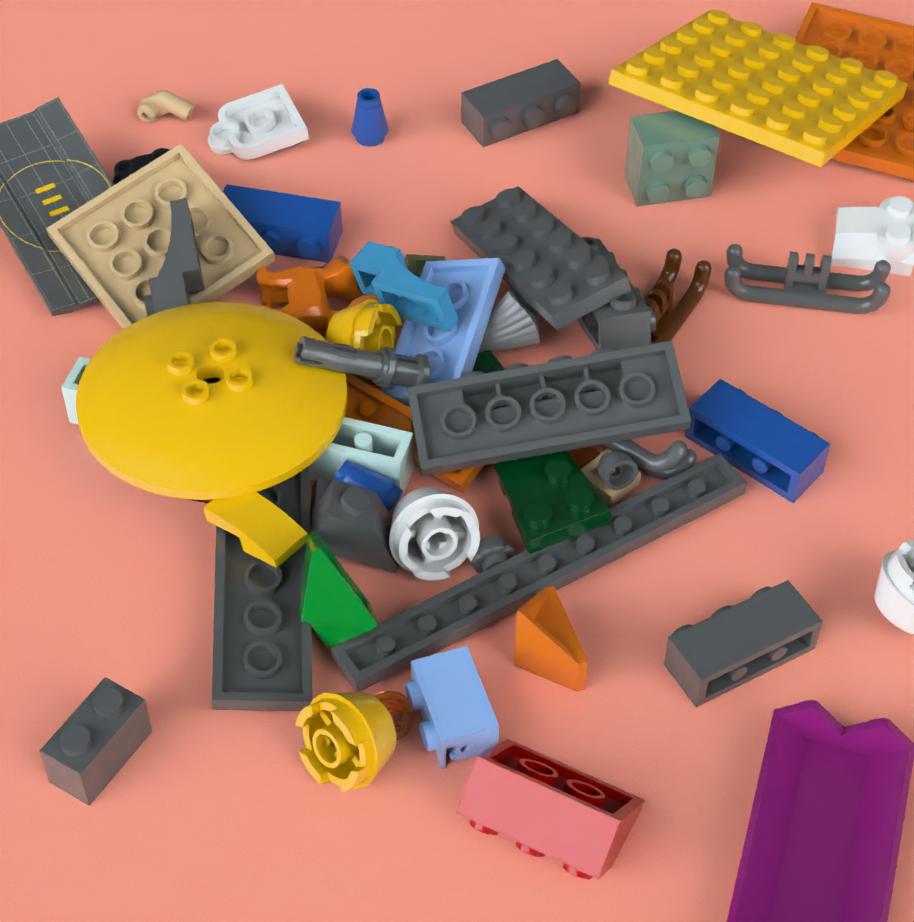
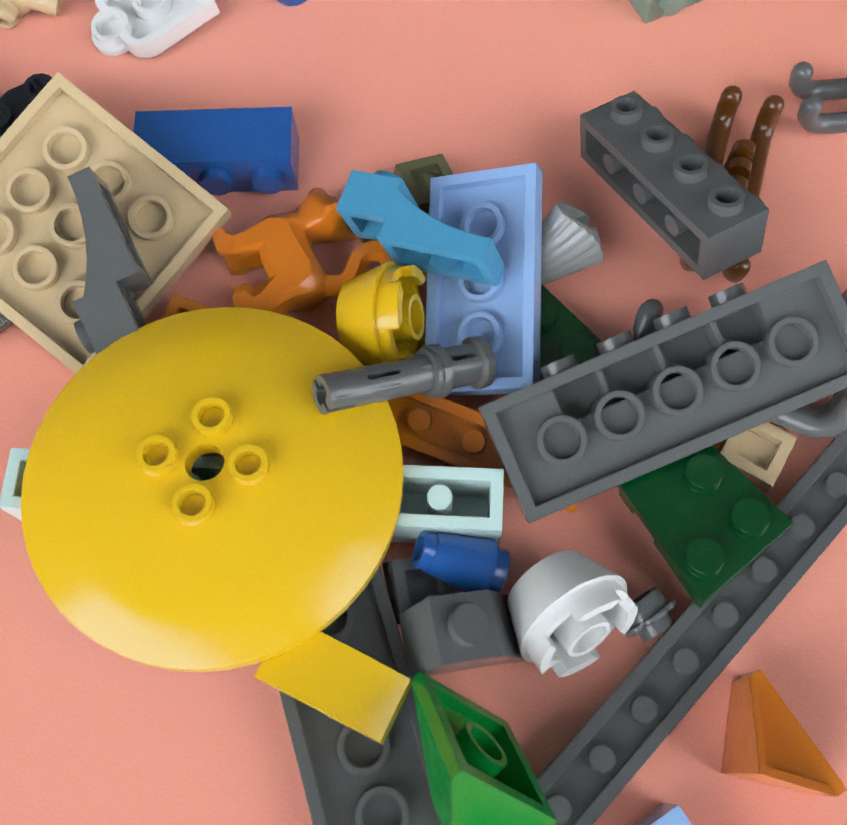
camera: 10 degrees left, 20 degrees up
(541, 257) = (592, 147): dark grey plate -> none
(624, 466) = (774, 449): dark grey hinge -> none

